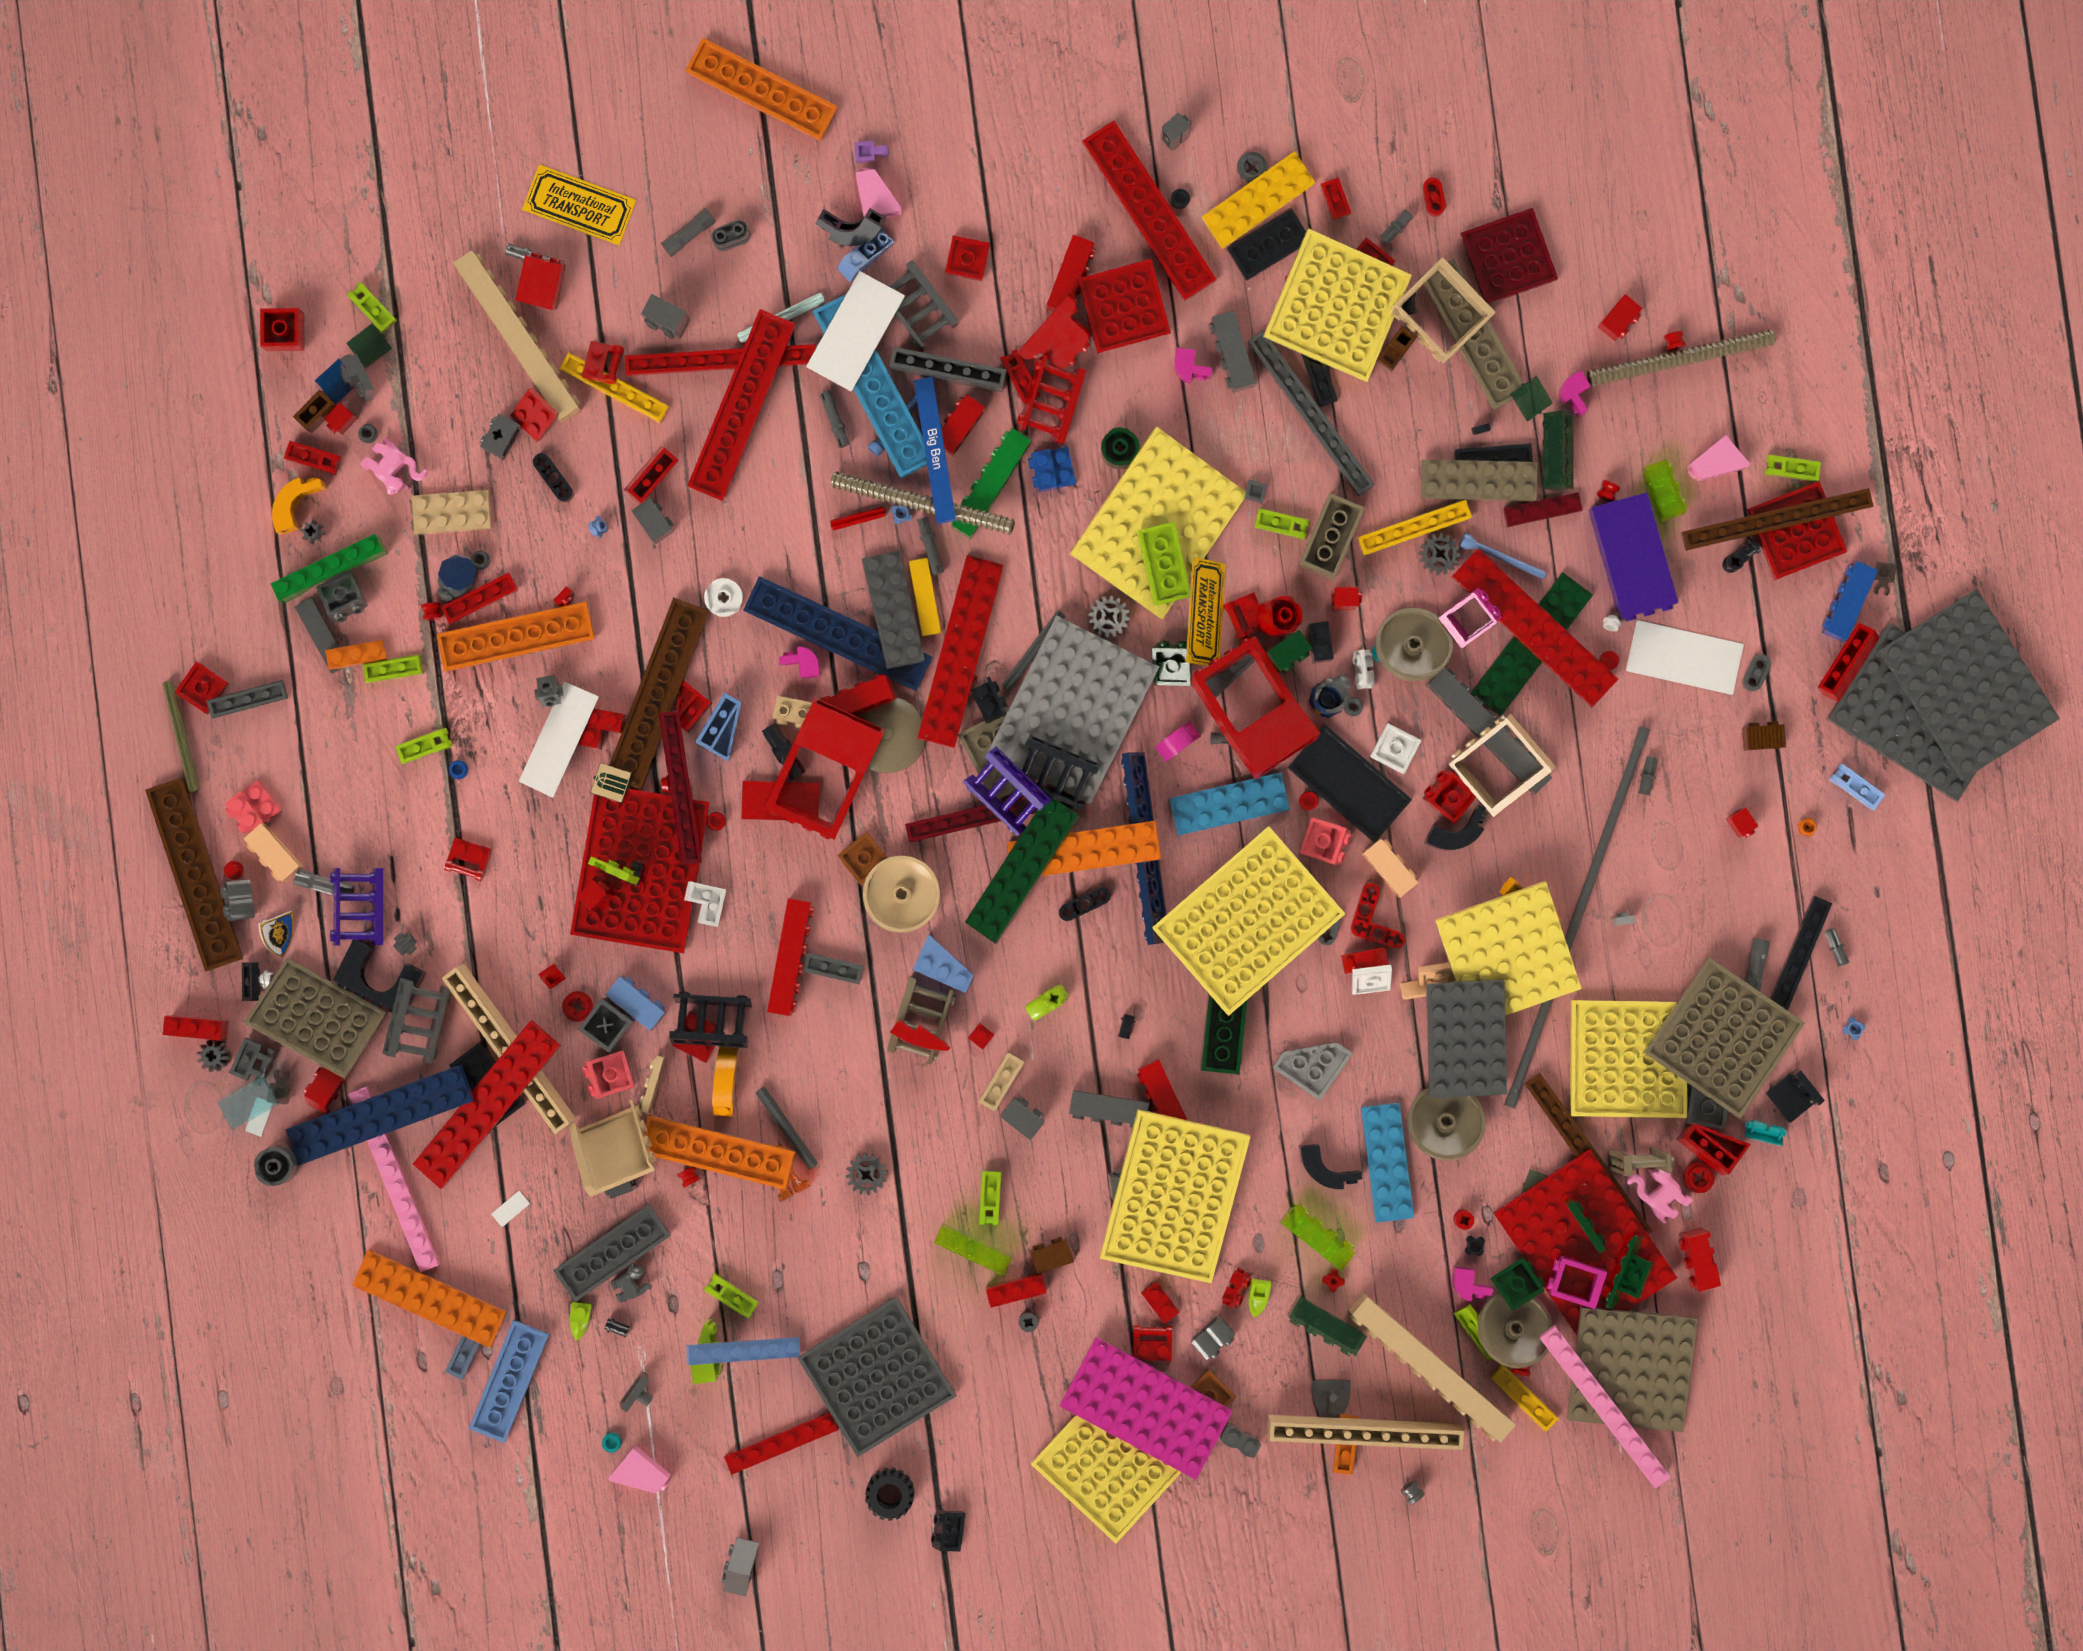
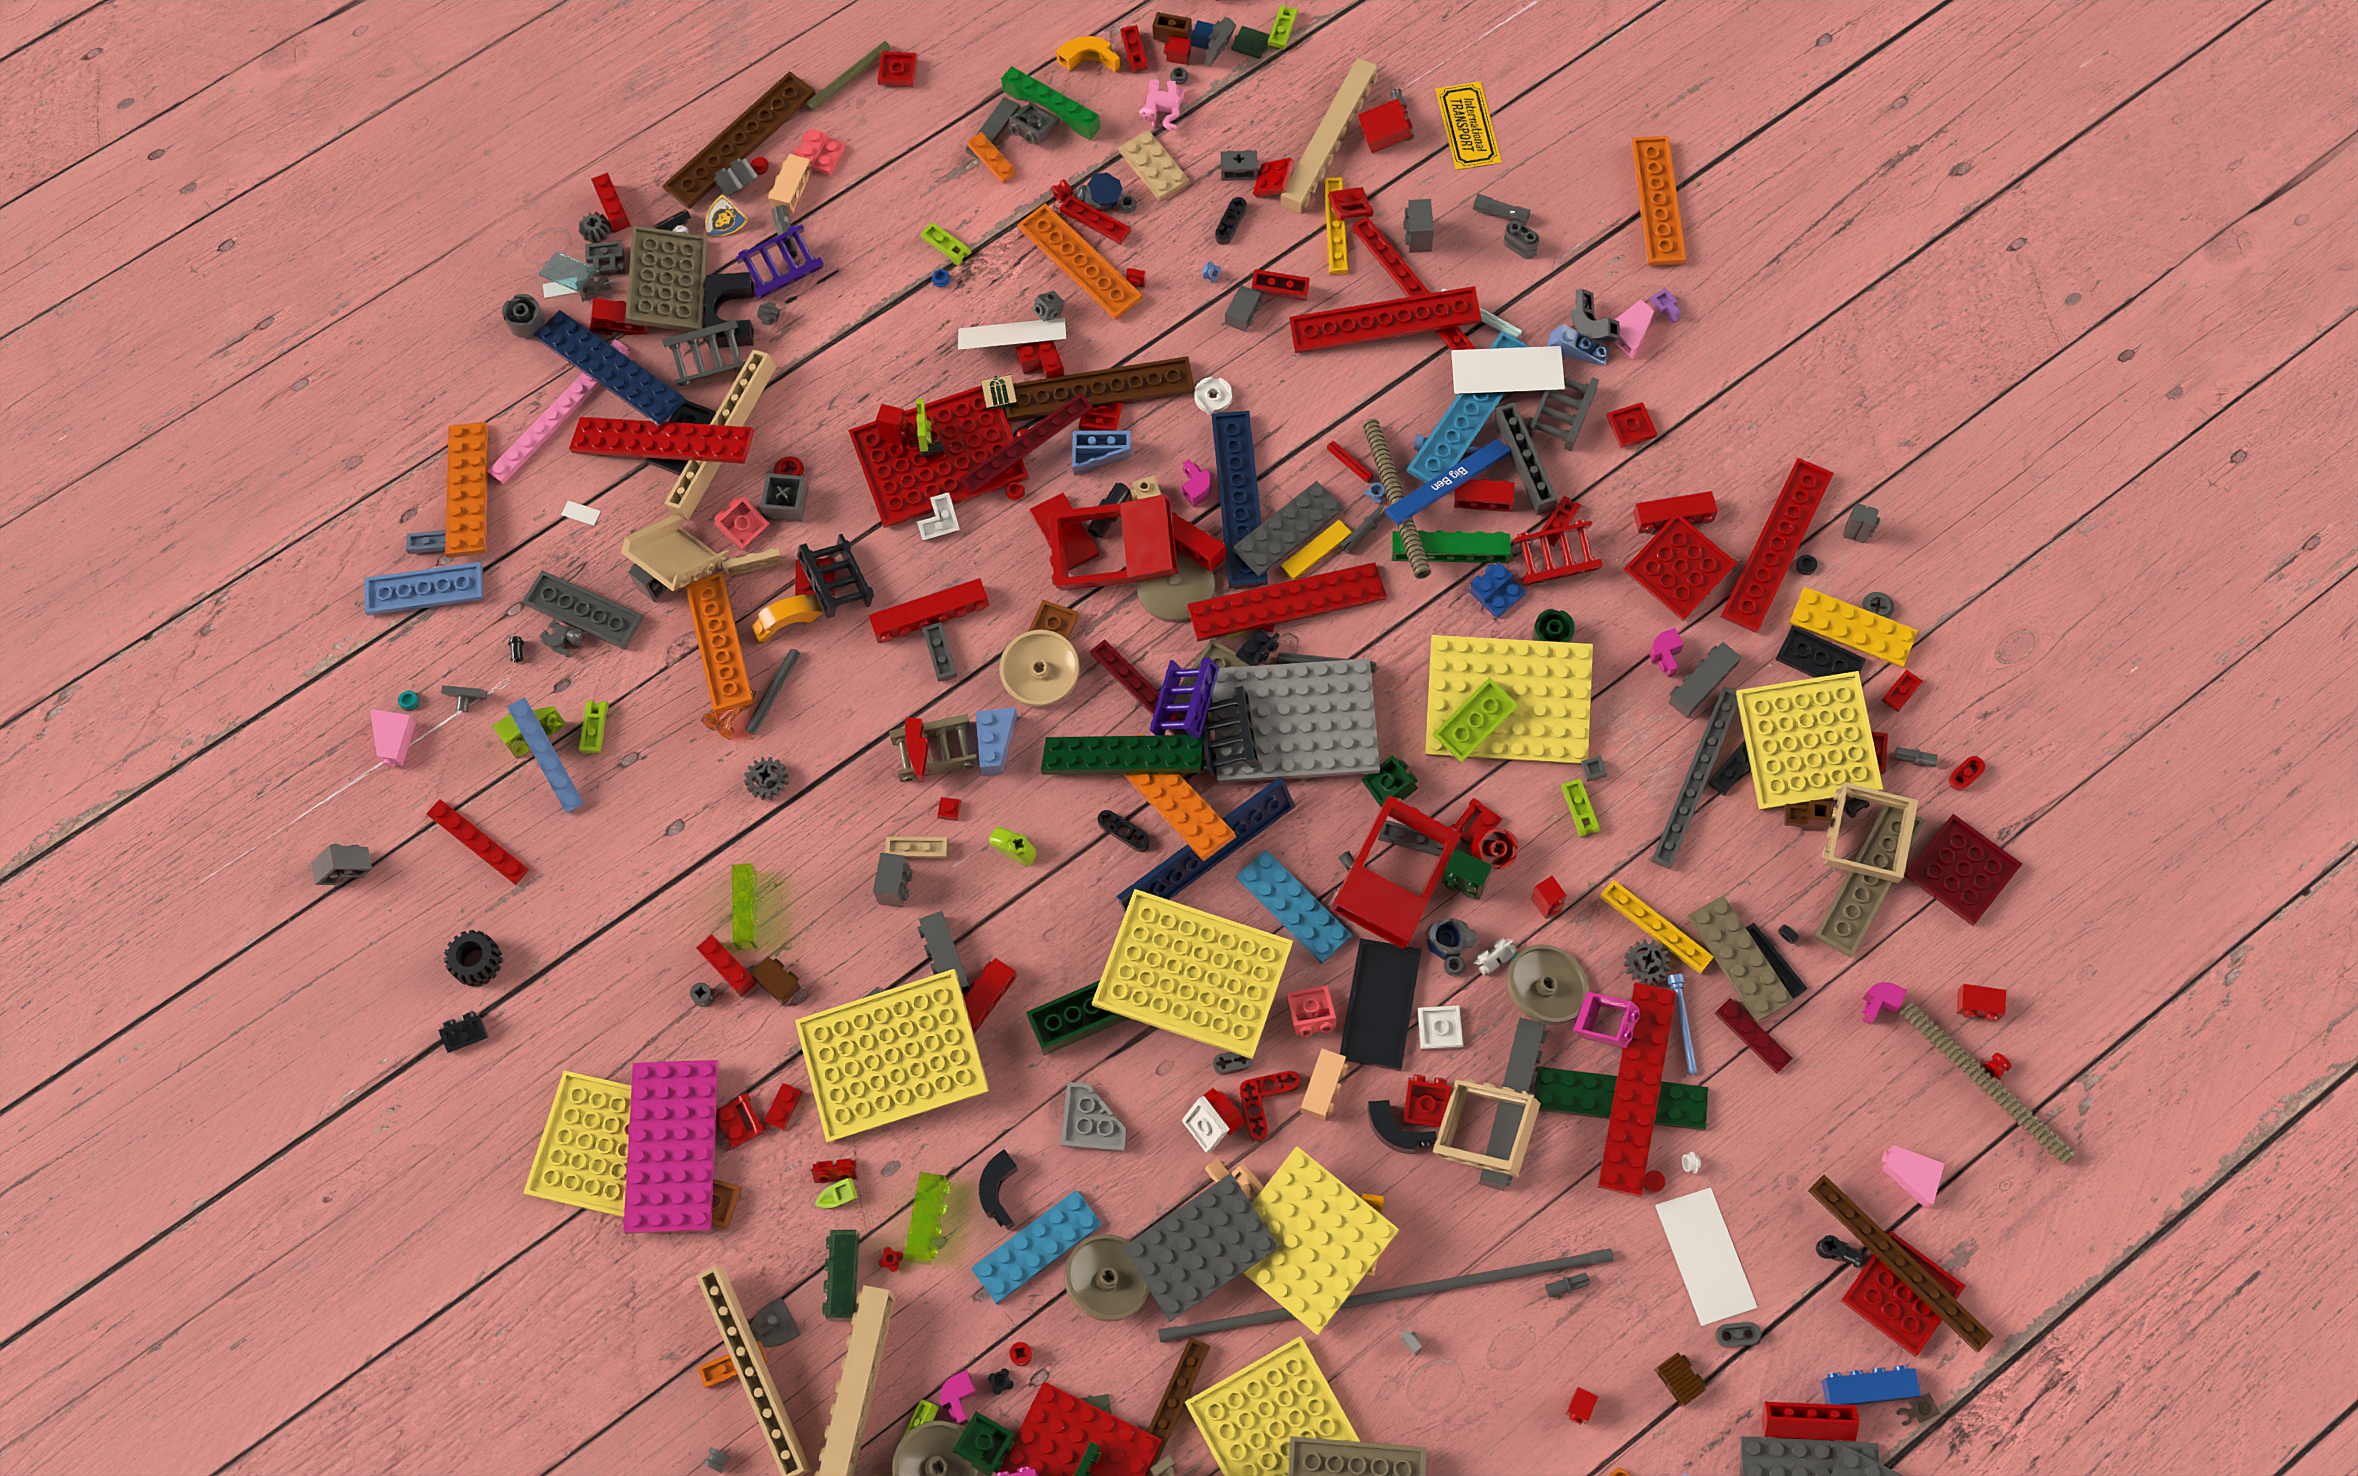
camera: 65 degrees right, 20 degrees down
(247, 699) = (907, 102): dark grey tile -> none
(315, 536) = (1073, 78): dark grey gear -> none
(392, 669) = (996, 190): lime tile -> none
(471, 853) = (875, 324): red plate -> none
(552, 976) = (803, 436): red plate -> none
(579, 1318) = (511, 616): lime plate -> none
(636, 1002) = (817, 512): medium blue brick -> none
(688, 1176) = (684, 634): red wheel -> none
(834, 418) = (1417, 403): dark grey pin -> none
(876, 1376) = (581, 889): dark grey plate -> none
(990, 1197) = (802, 896): lime plate -> none
(1059, 336) = (1617, 527): red brick -> none
(1115, 611) = (1390, 701): light grey gear -> none
(1126, 1026) = (1030, 929): black pin -> none
(1177, 741) = (1322, 823): dark pink brick -> none
(1205, 611) = (1457, 780): yellow sticker -> none
(1213, 1337) = (773, 1173): dark grey brick -> none
(1244, 1441) = (685, 1248): dark grey brick -> none
(1308, 801) = (1340, 976): red tile -> none
(1320, 642) = (1494, 900): black brick -> none
(1331, 536) = (1597, 854): dark tan brick -> none
(1531, 398) = (1848, 963): clear green piece -> none
(1558, 450) = (1817, 1014): clear green brick -> none
(1608, 491) = (1813, 1085): red wheel -> none
(1633, 557) = (1767, 1145): dark purple brick -> none
(1664, 490) = (1851, 1139): clear neon green brick -> none
(1793, 468) = (1959, 1253): lime plate -> none

